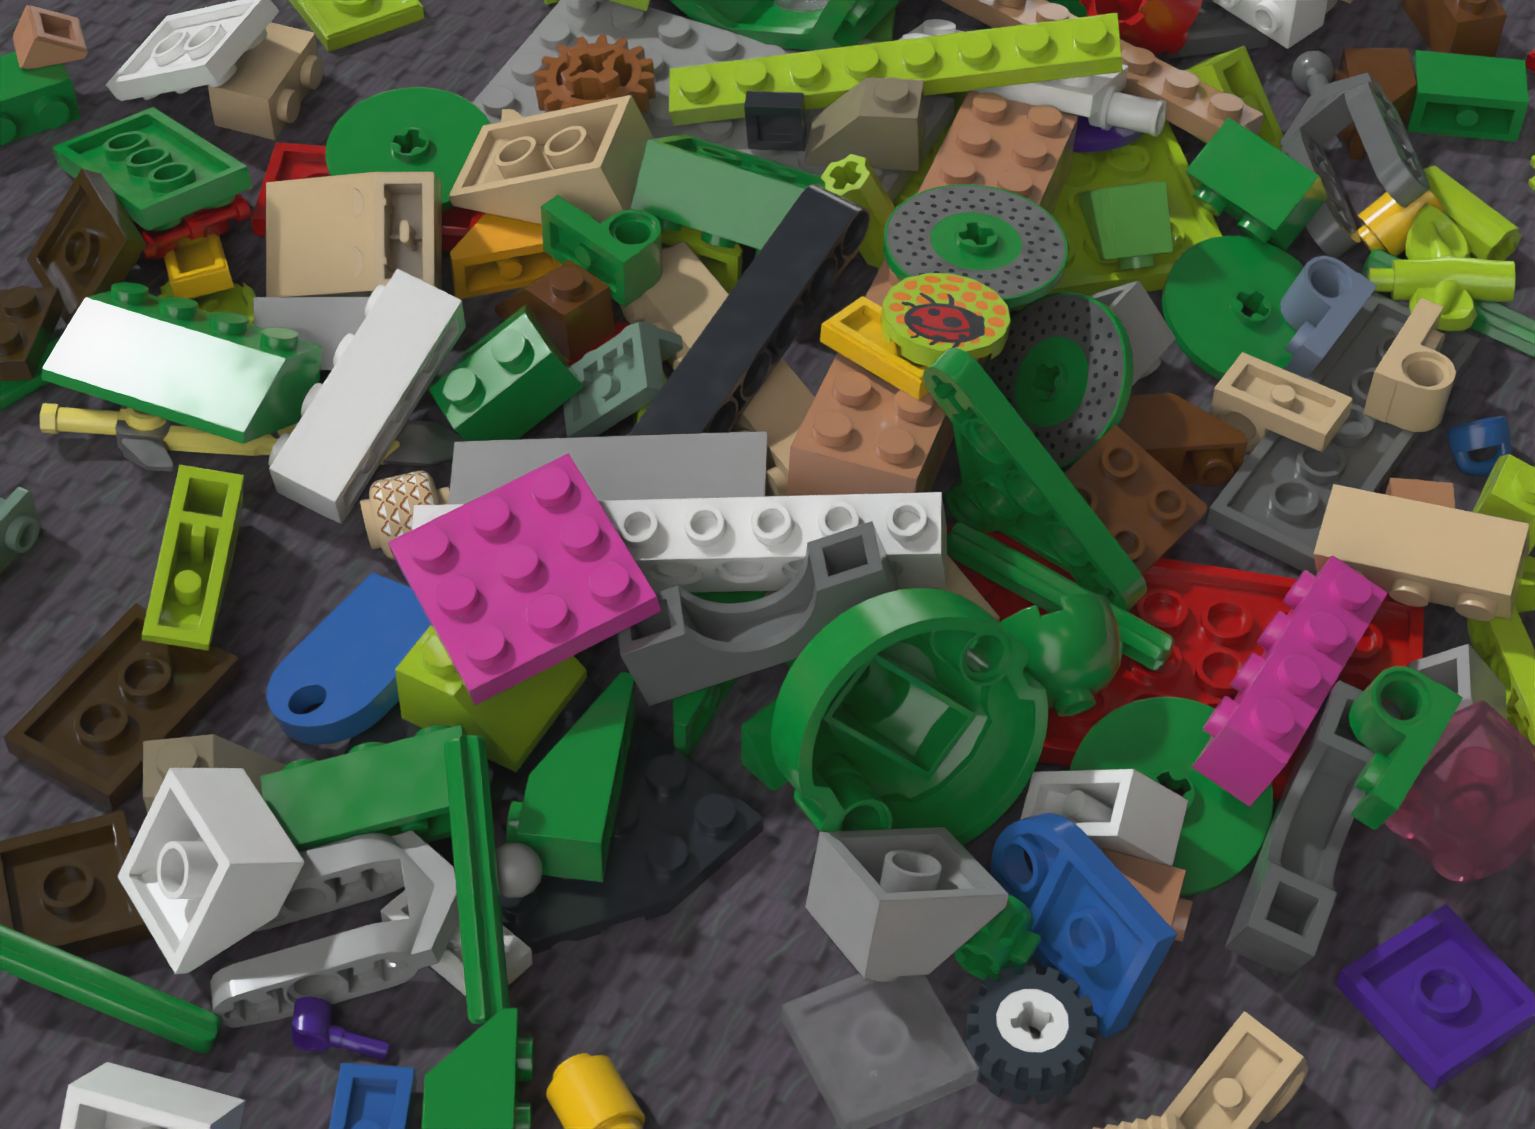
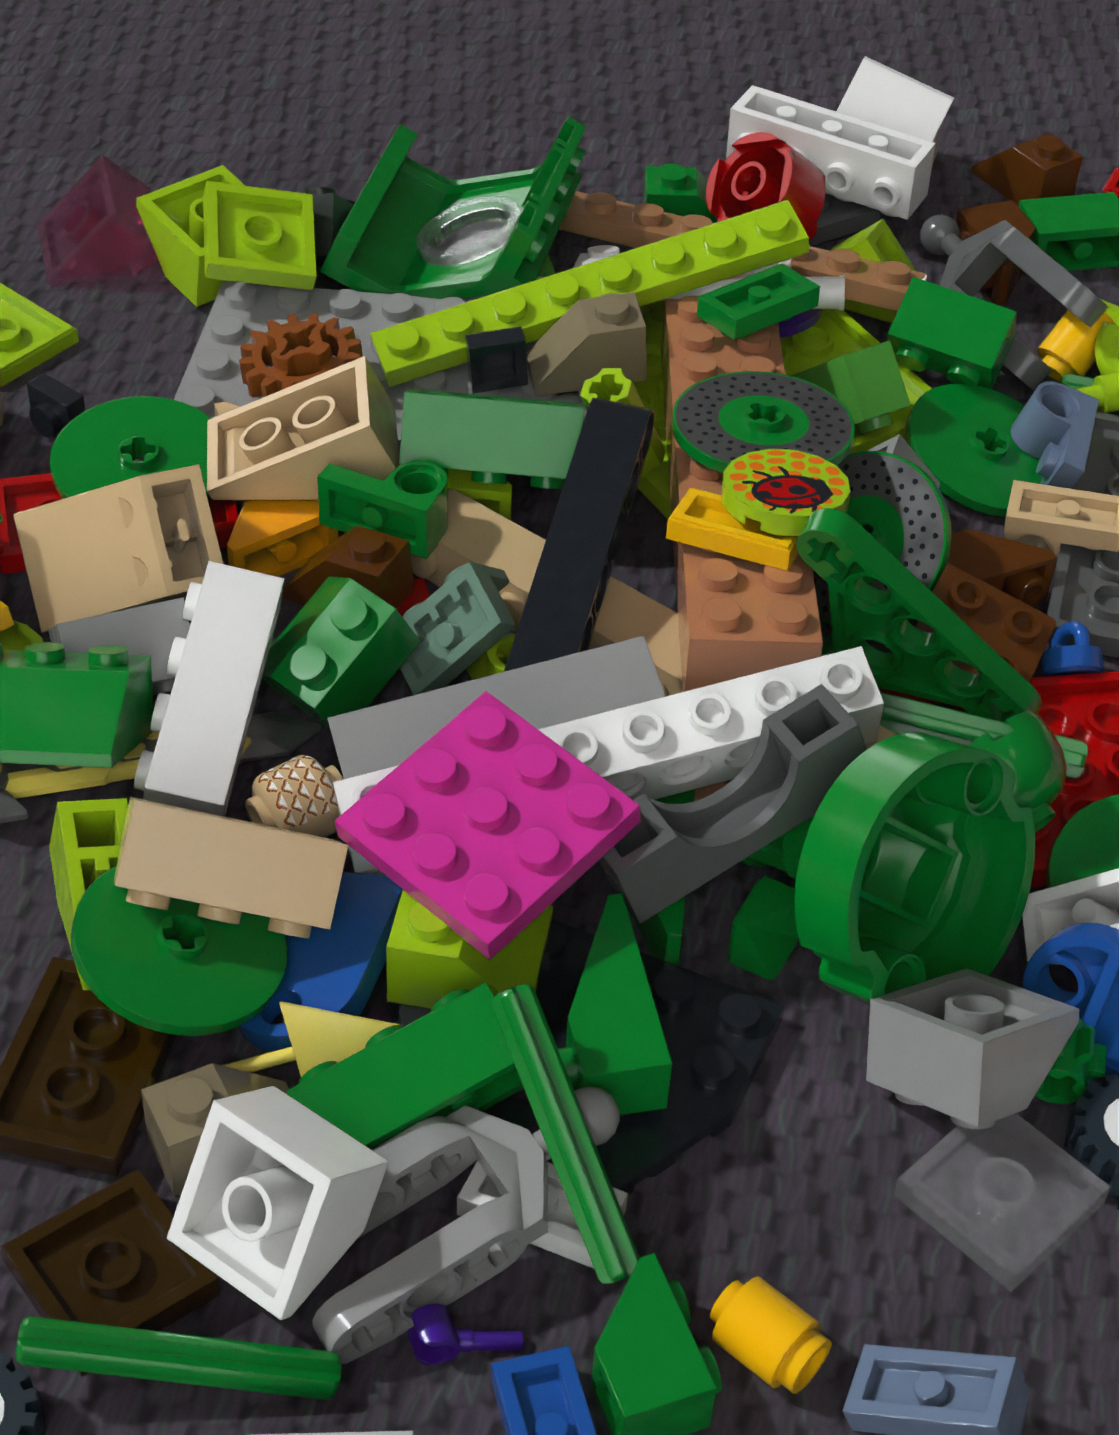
camera: 20 degrees left, 5 degrees down
(188, 631) = (170, 989): none -> green piece
(294, 557) = (229, 867): none -> tan slope
(320, 732) = (316, 1038): none -> light yellow piece
(361, 77) = (52, 405): none -> black plate
(1044, 114) = (758, 301): none -> green plate
(1219, 545) = (1071, 659): none -> blue tile

